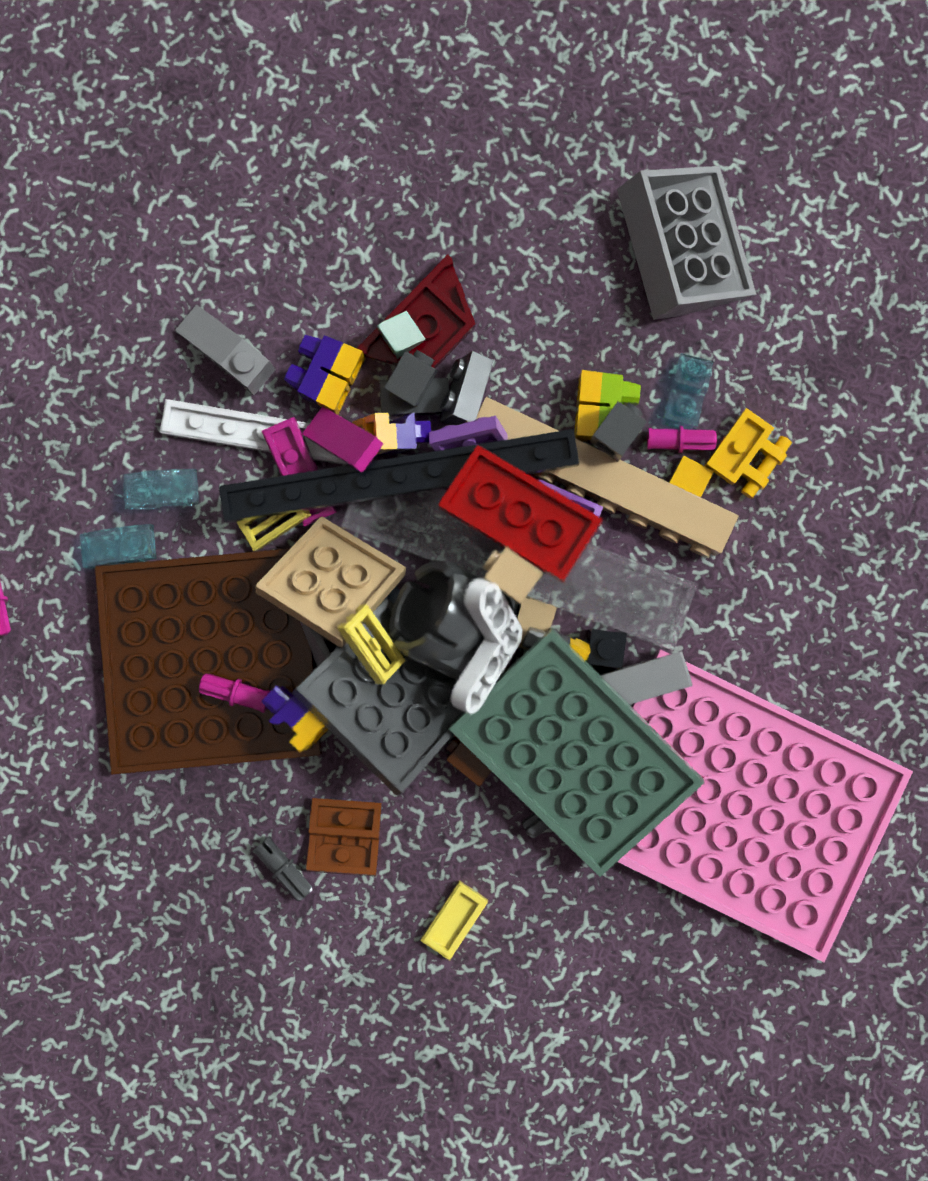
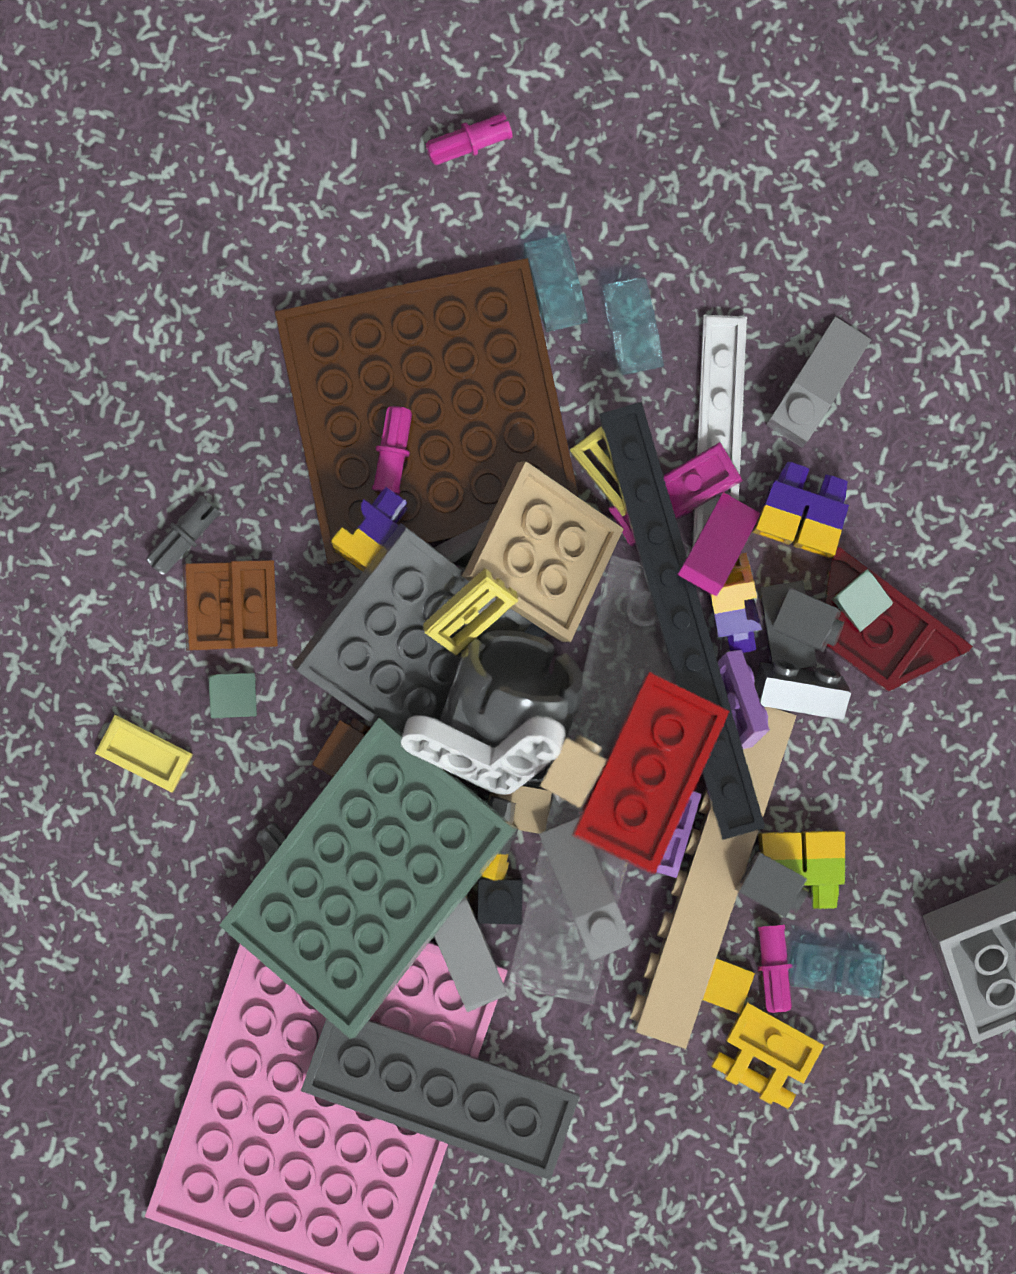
camera: 85 degrees right, 0 degrees up
(416, 843) = (232, 695): none -> sand green slope
(608, 578) = (586, 891): none -> light grey slope
(755, 711) = (443, 1095): none -> dark grey plate

